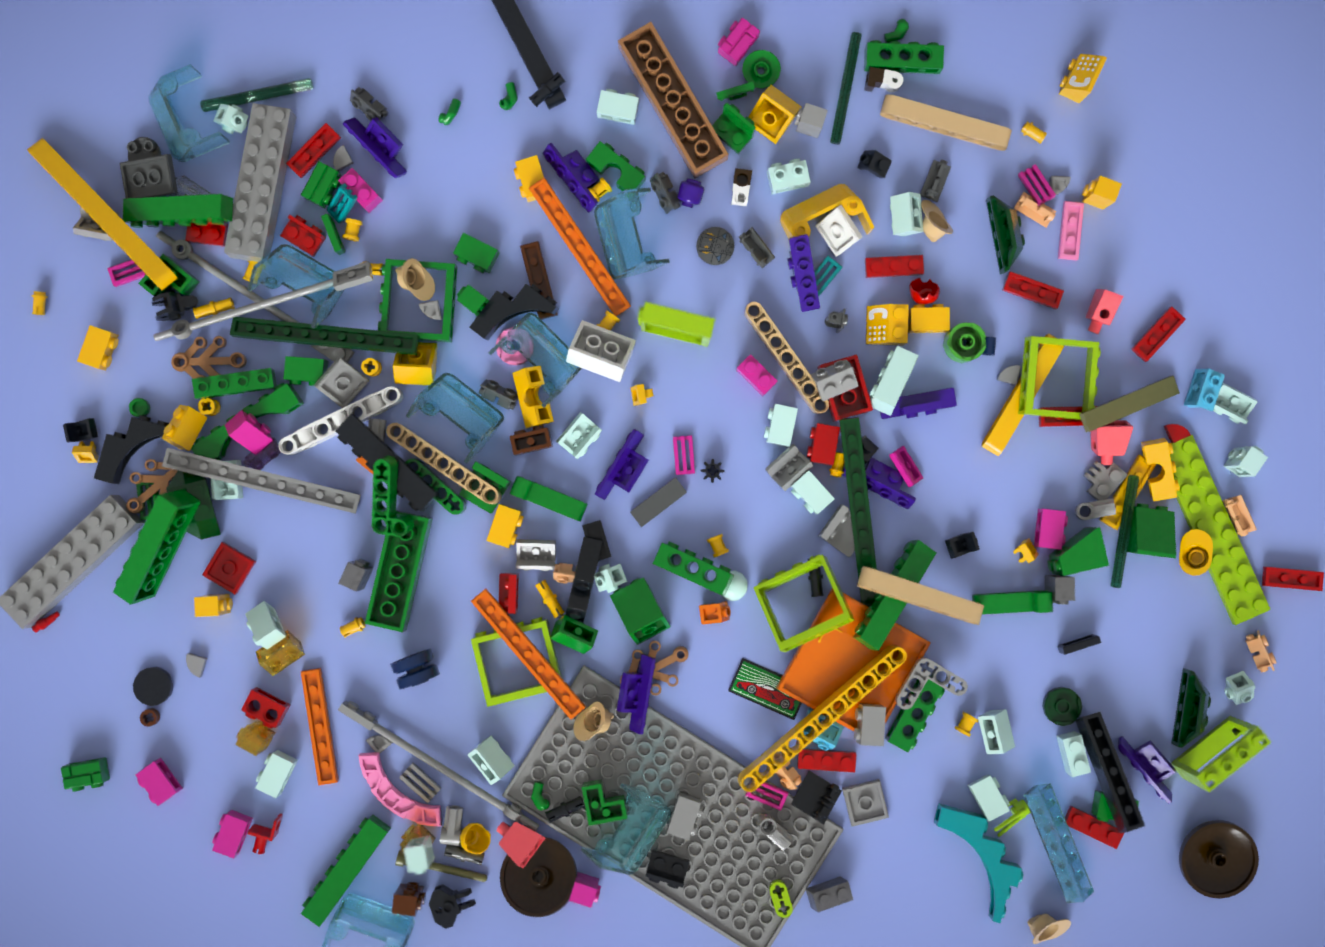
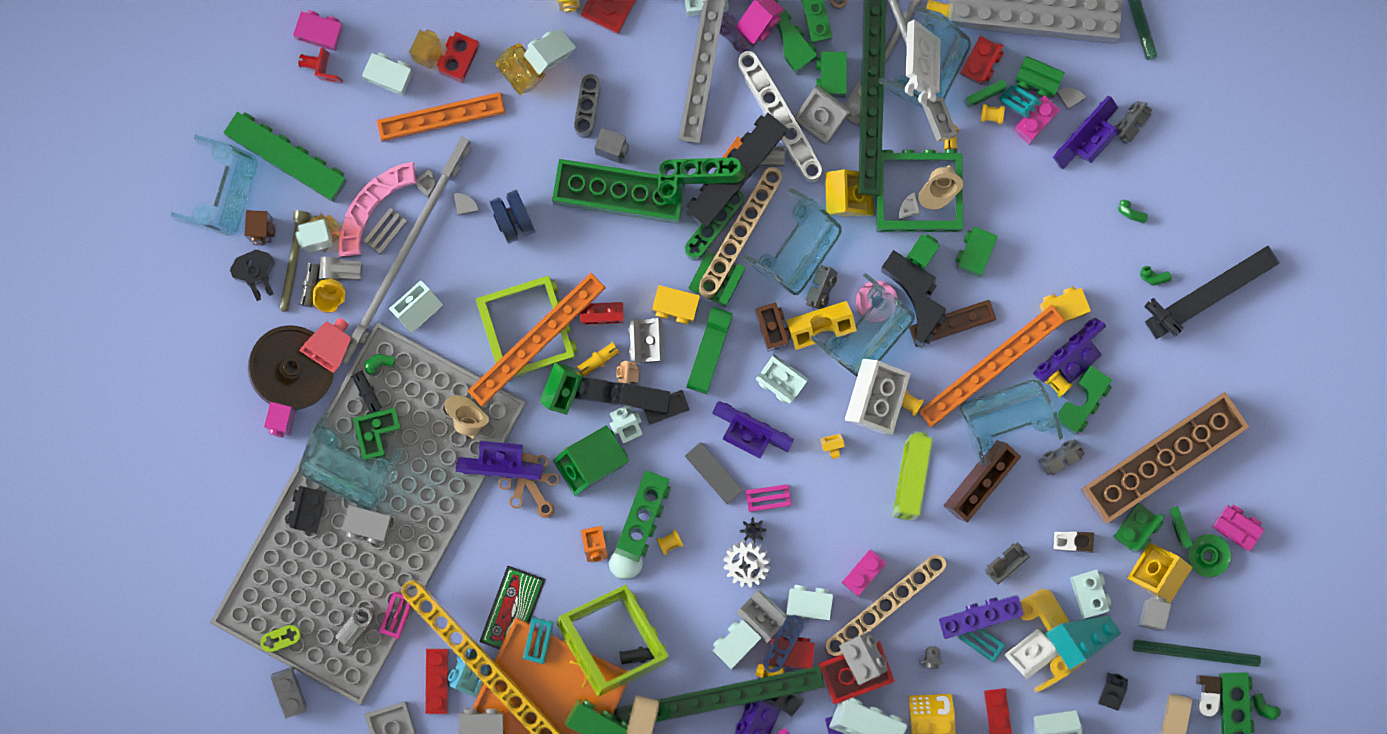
camera: 90 degrees right, 5 degrees down
(299, 287) = (922, 62): none -> white tile
(309, 593) = (591, 96): none -> dark grey beam
(313, 150) = (1077, 65): red plate -> none
(353, 626) = (553, 145): yellow pin -> none
(373, 372) = (847, 142): yellow bush -> none
(401, 709) = (464, 204): none -> light grey tile
(618, 106) = (1153, 397): light aqua brick -> none
(682, 263) = (982, 481): none -> reddish brown brick
(690, 192) = (1063, 485): dark purple head -> none
(715, 246) = (1006, 517): dark grey dish -> none
(747, 483) = (741, 571): none -> white gear
(784, 665) = (542, 622): none -> teal tile
(788, 778) = (414, 640): light nougat hinge -> none
(807, 438) = (796, 632): none -> dark blue beam
(816, 797) = (395, 672): black hinge -> none
(831, 183) = (1082, 638): none -> teal wedge
(839, 531) = (694, 677): light grey bracket -> none

